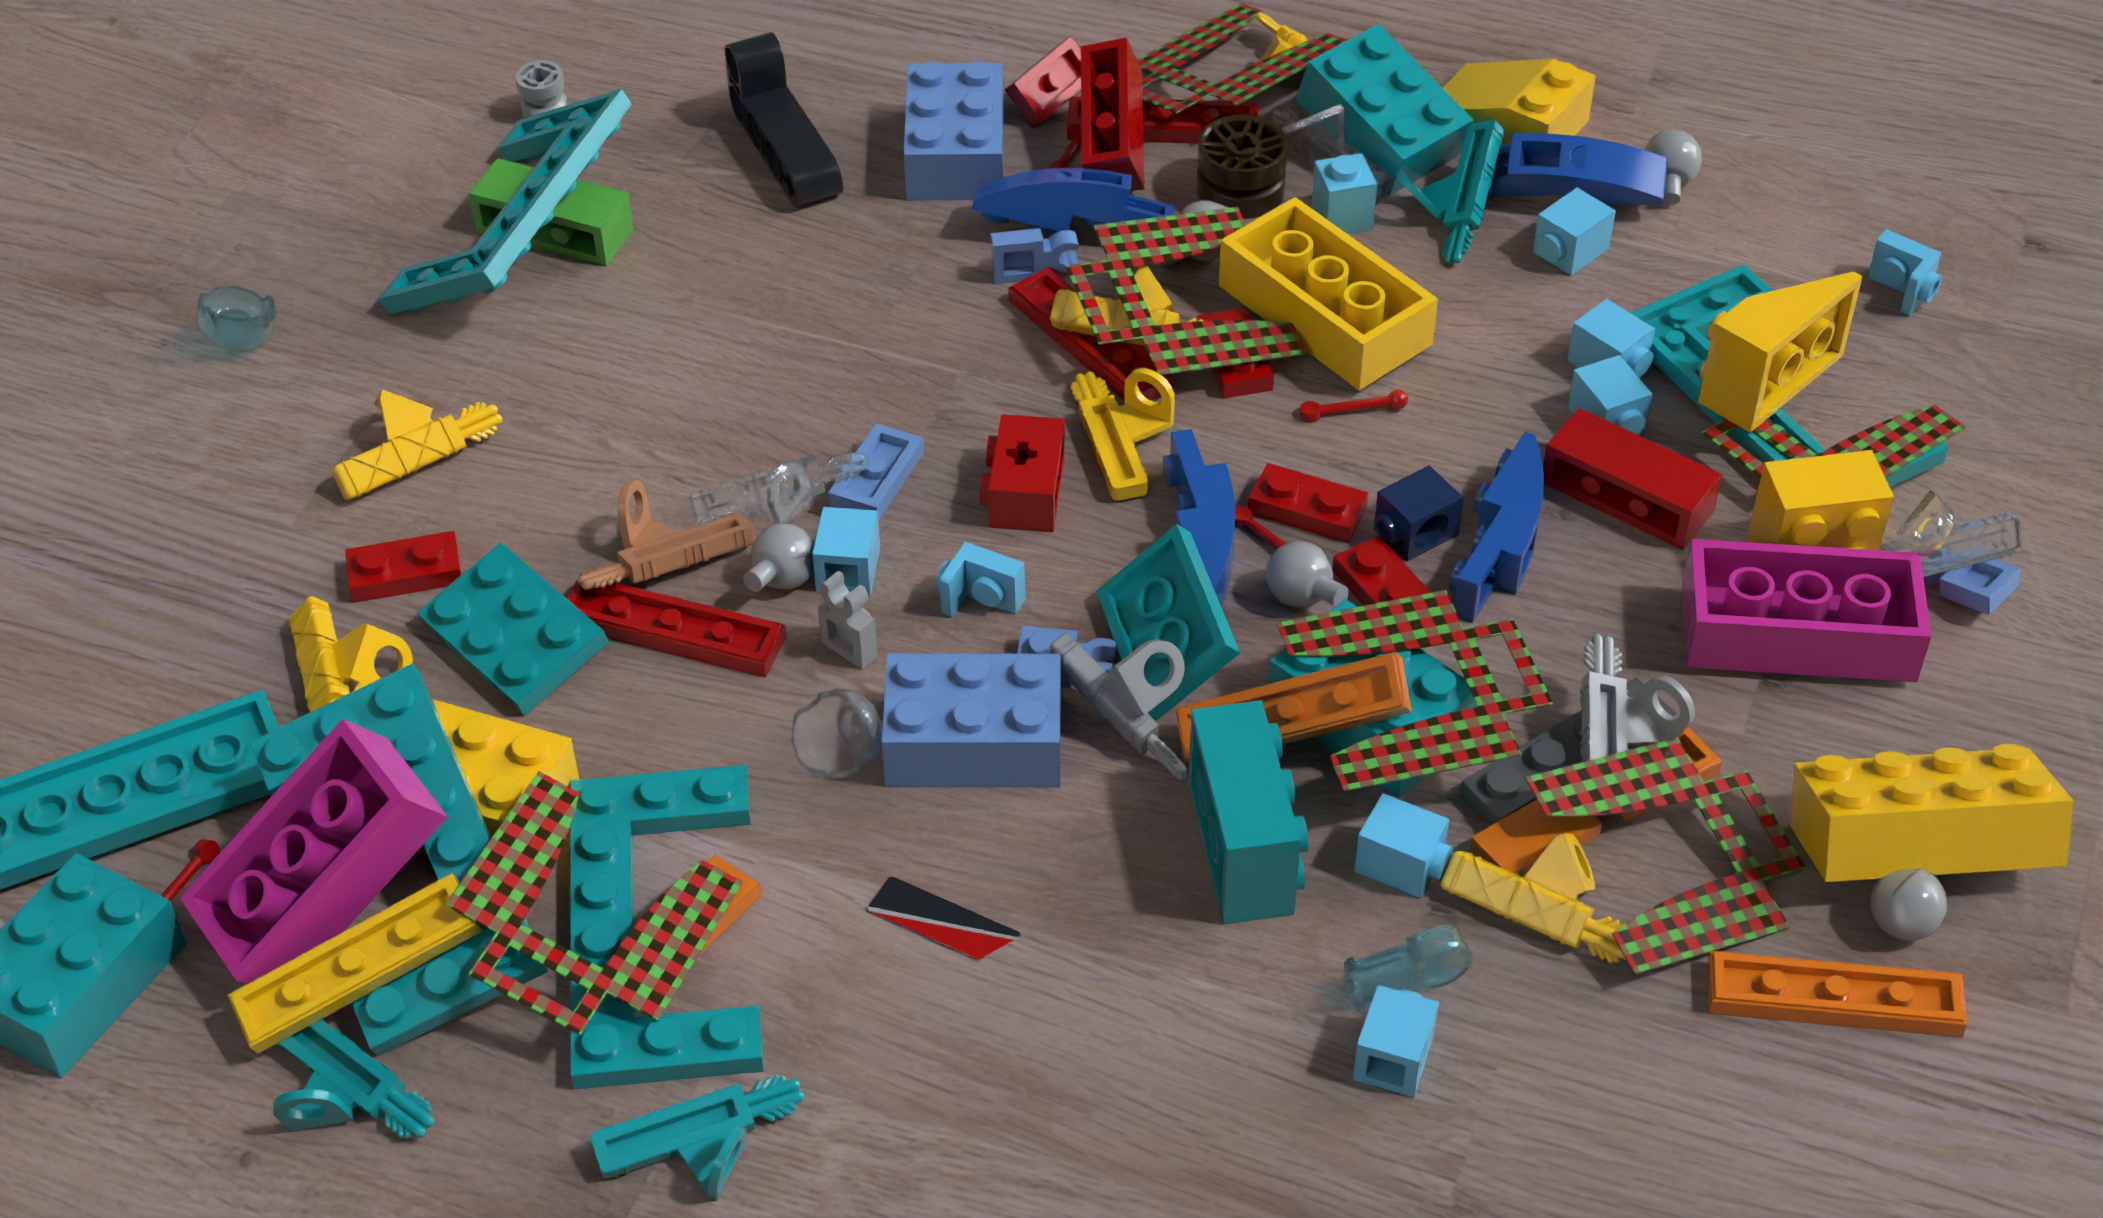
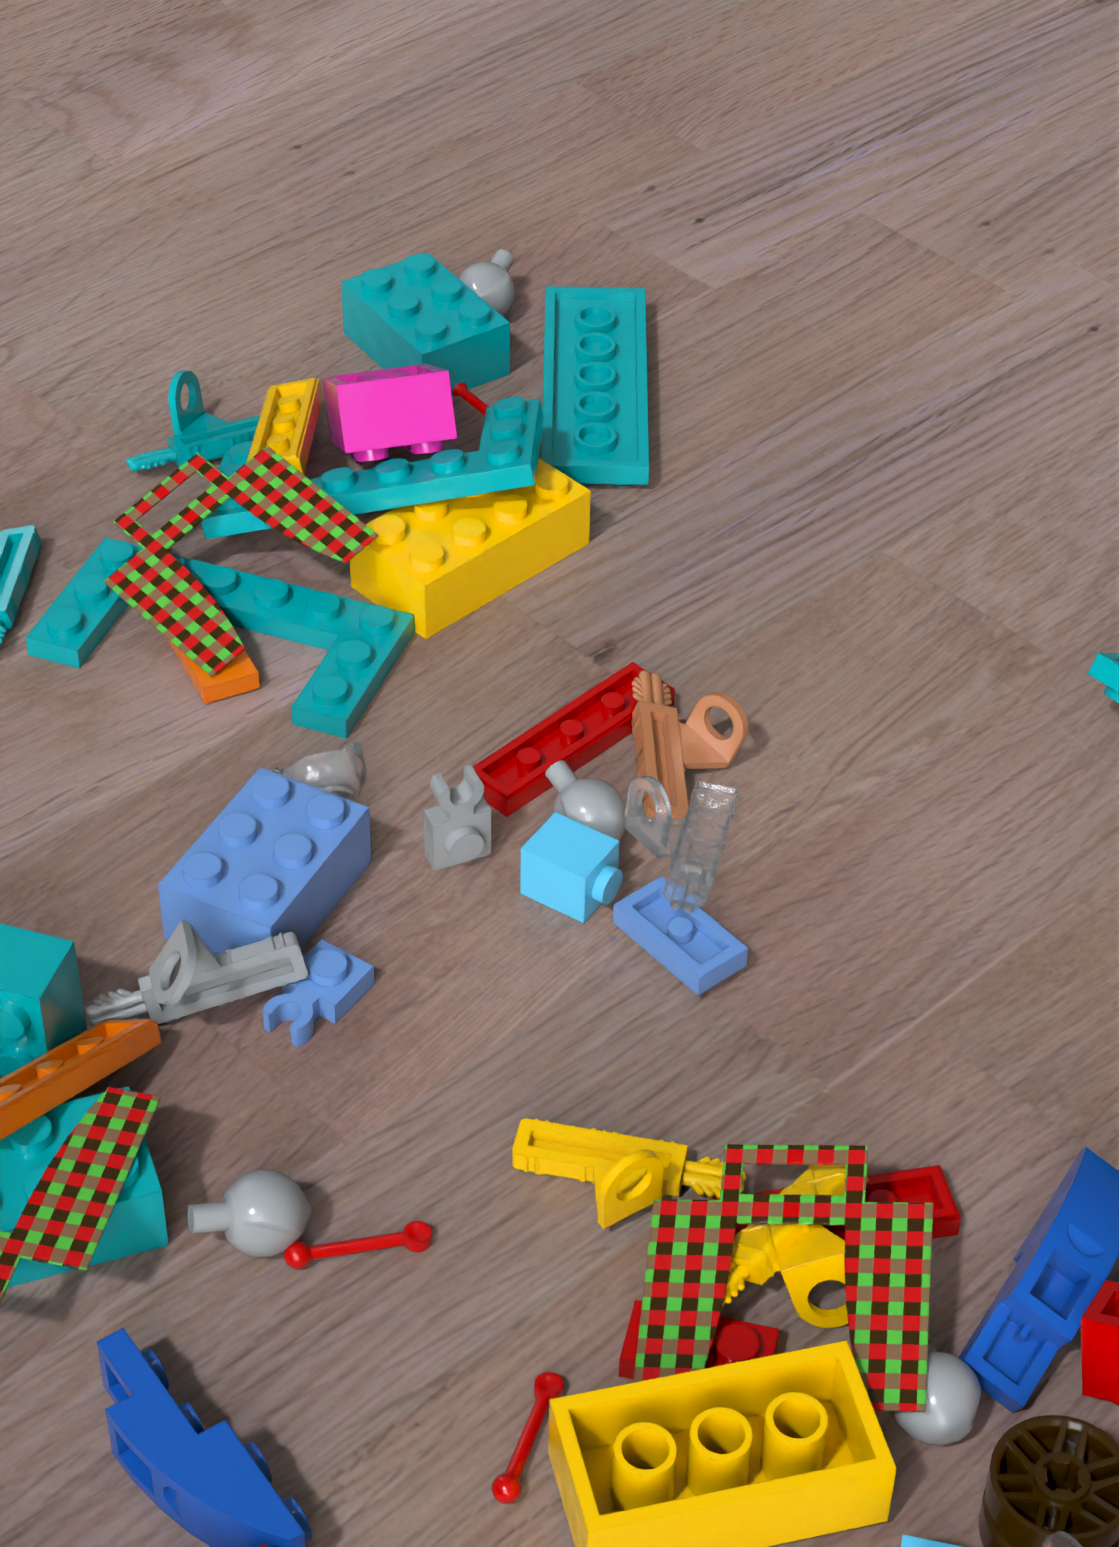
camera: 115 degrees right, 5 degrees down
(331, 663) = (650, 513): yellow piece -> none
(403, 566) = (769, 594): red plate -> none
(411, 442) = (934, 626): yellow piece -> none
(513, 628) = (629, 627): teal plate -> none
(940, 919) = (82, 803): sticker -> none
(983, 577) = (454, 956): medium azure bracket -> none
(1025, 473) = (592, 1048): red brick -> none
(1026, 252) = (990, 1191): medium blue plate -> none
(1172, 600) = (266, 1055): teal plate -> none
(1203, 506) = (382, 1166): blue slope -> none
(1308, 502) = (390, 1304): red plate -> none
(1376, 573) = (207, 1314): red plate -> none
(1418, 513) = (278, 1381): dark blue brick -> none

